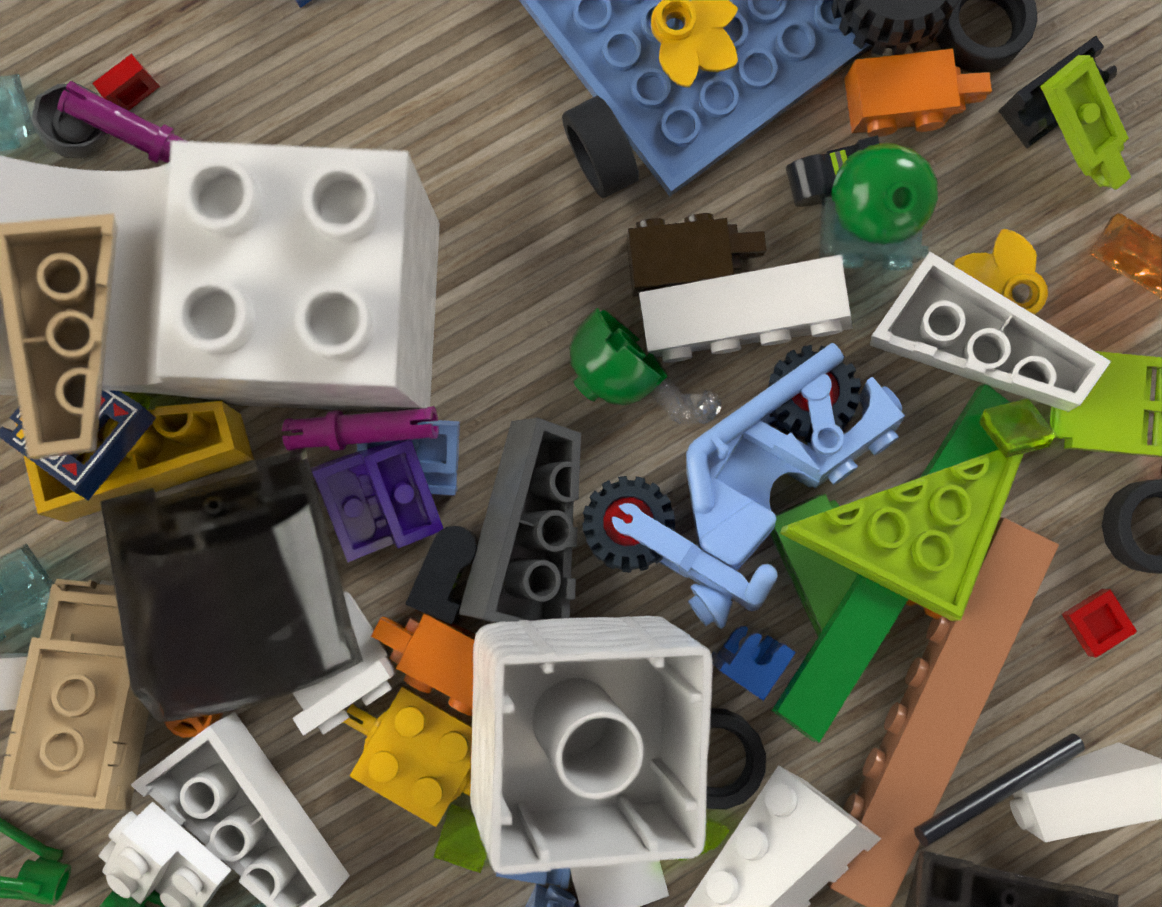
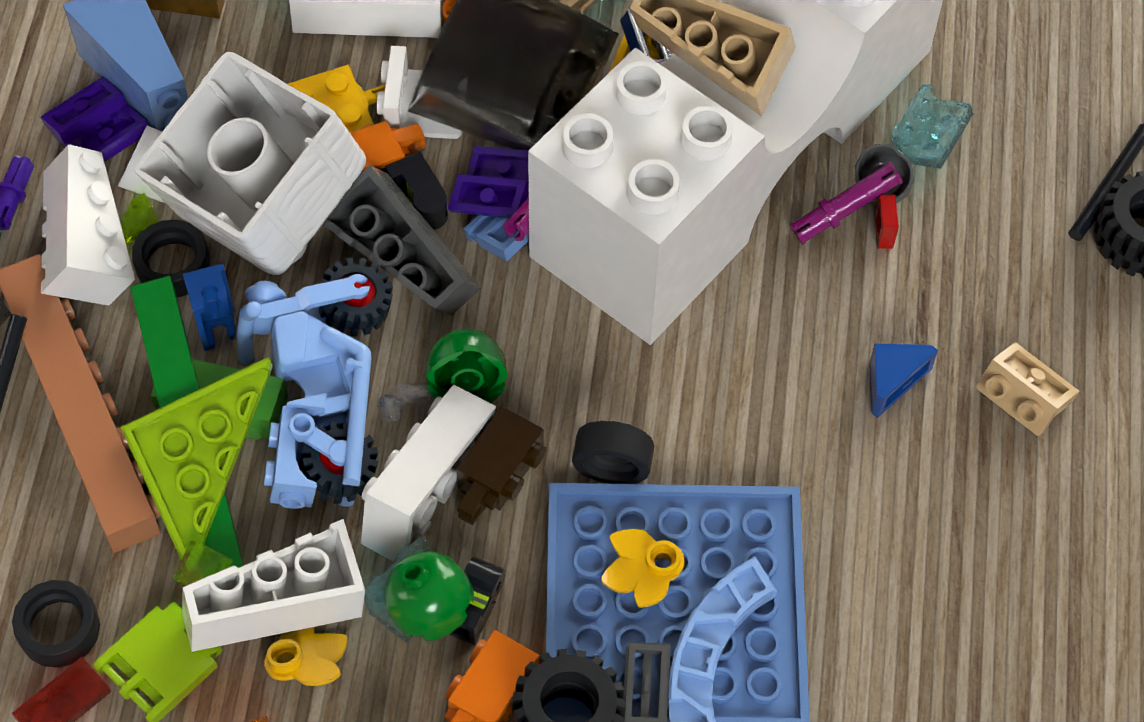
camera: 130 degrees right, 25 degrees down
(1099, 623) = (31, 545): red tile -> none

